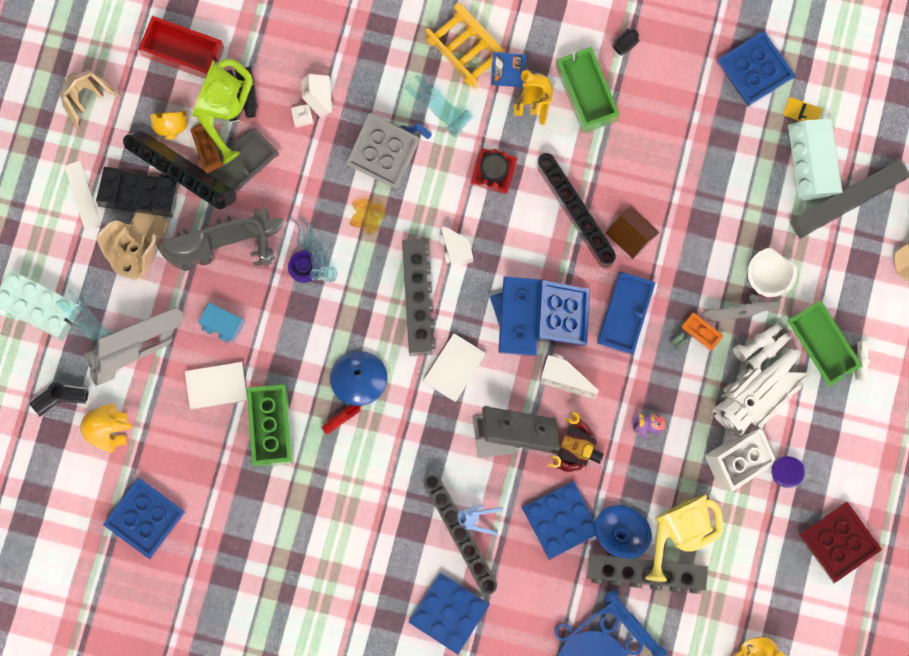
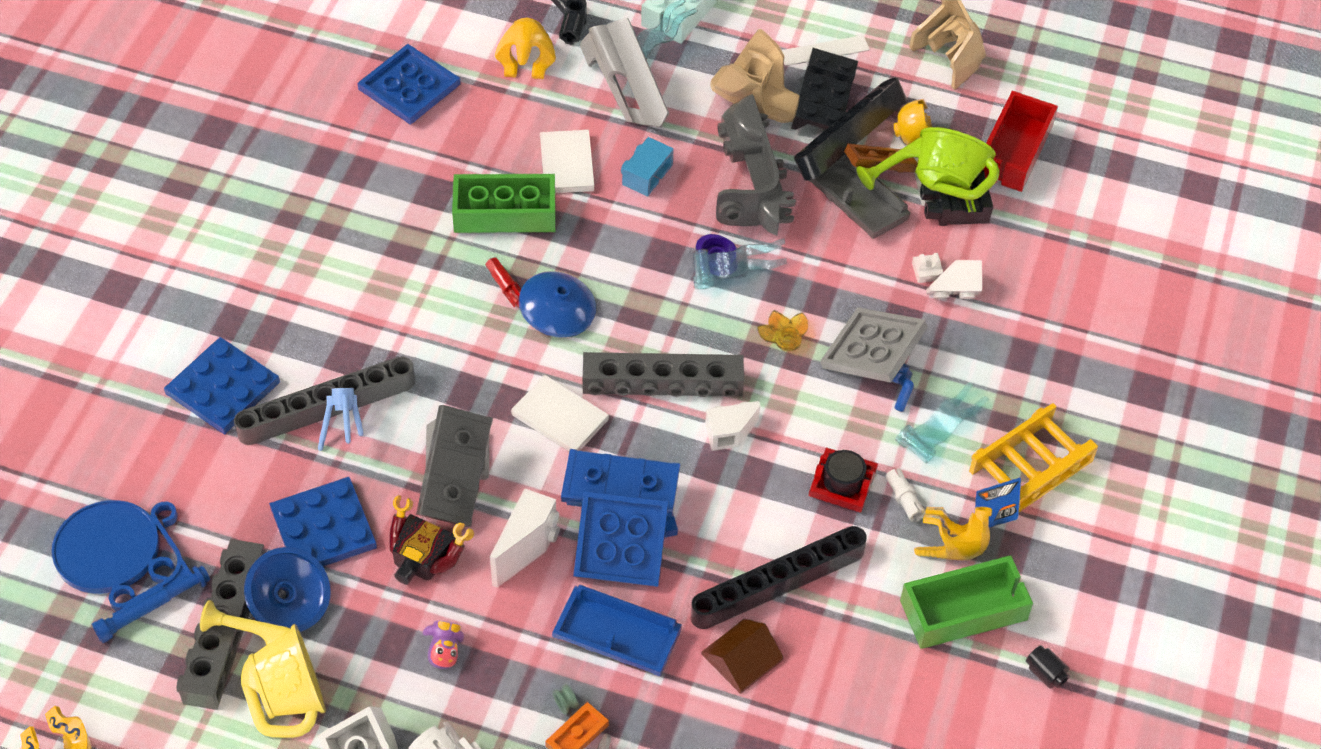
camera: 90 degrees right, 25 degrees down
(502, 130) = (905, 495): none -> white pin

